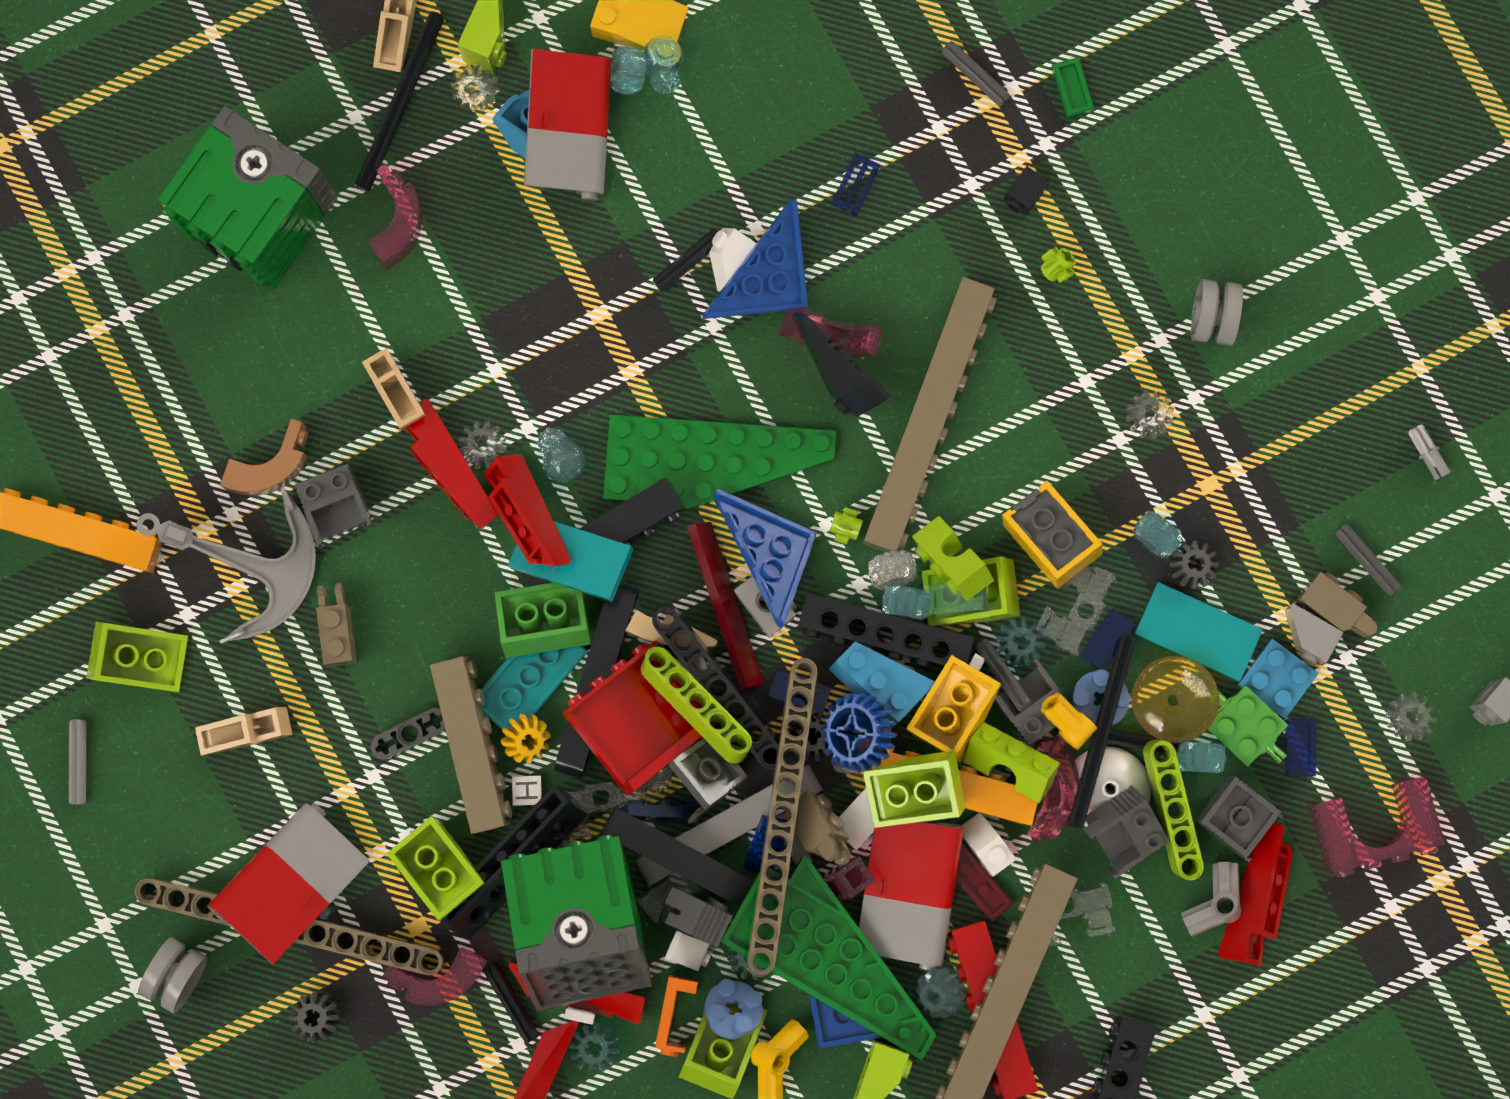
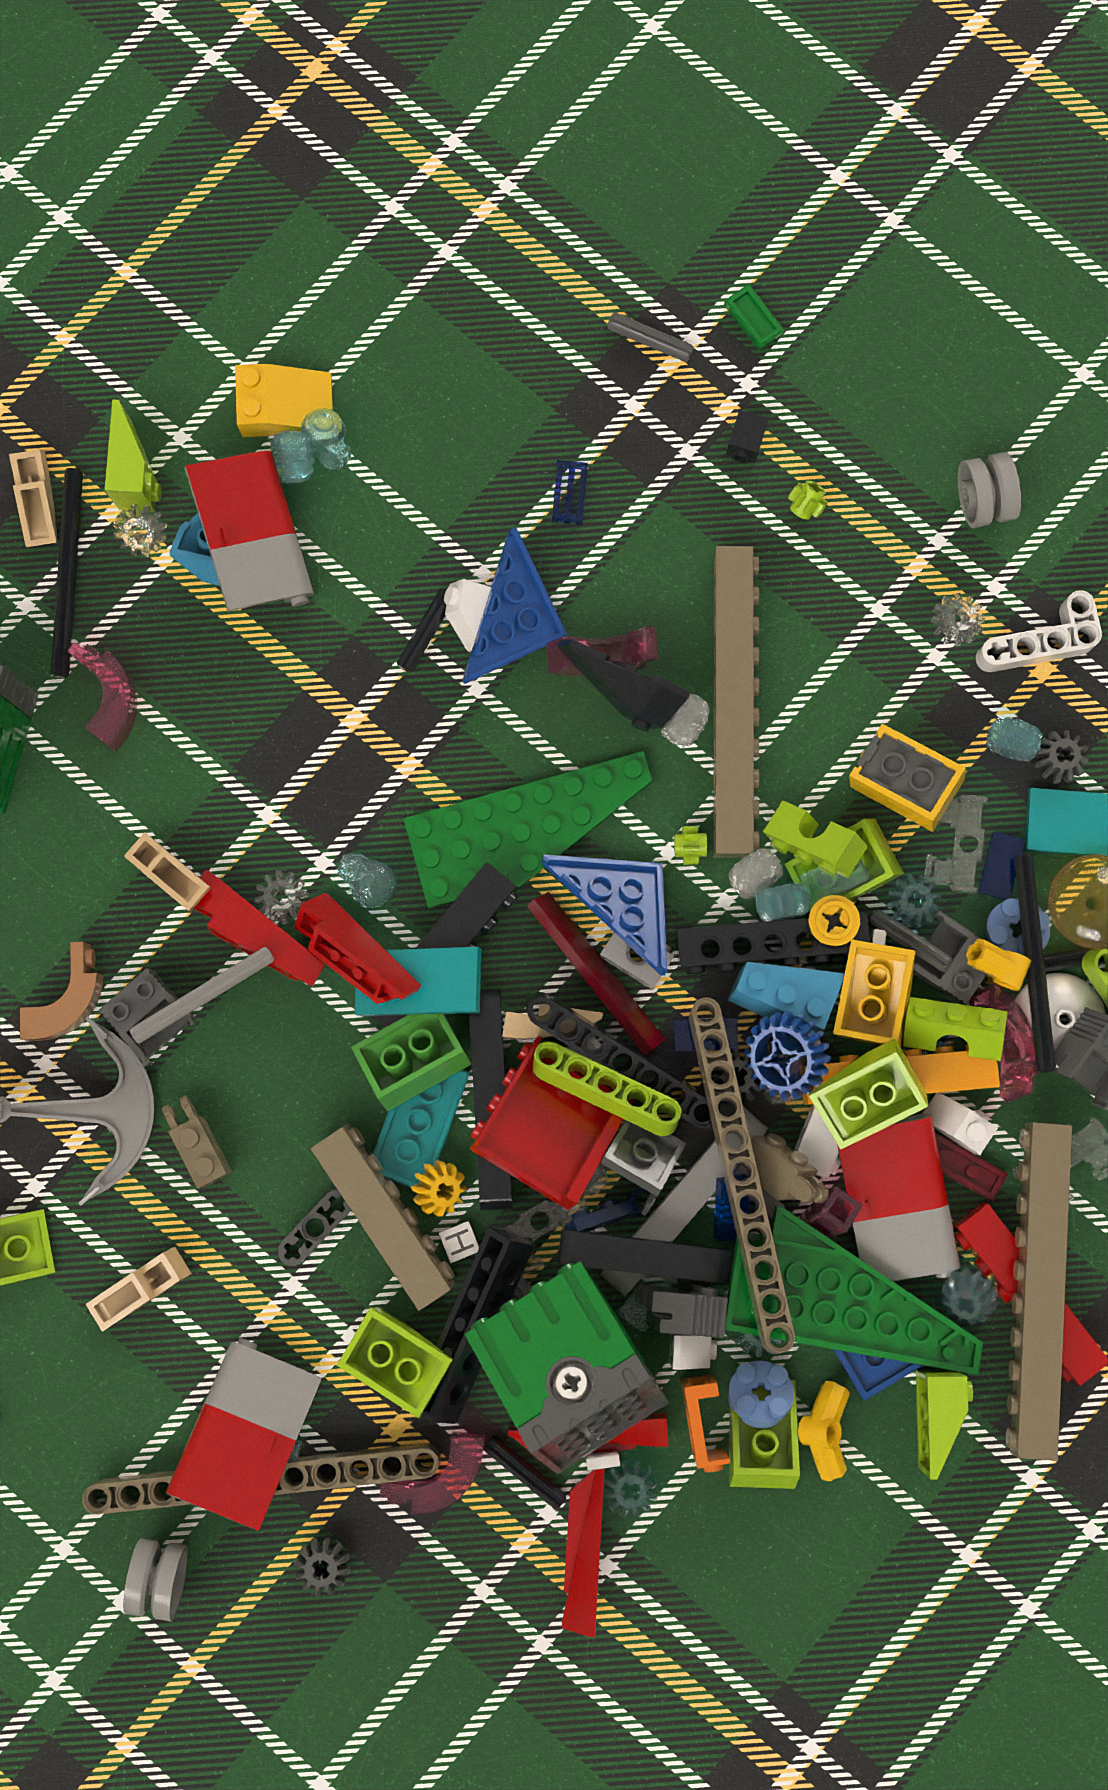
camera: 20 degrees left, 0 degrees up
(385, 503) = (201, 995): none -> light grey axle
(881, 419) = (687, 722): none -> clear gear
(956, 635) = (848, 917): none -> yellow gear
(1211, 456) = (1037, 639): none -> white beam

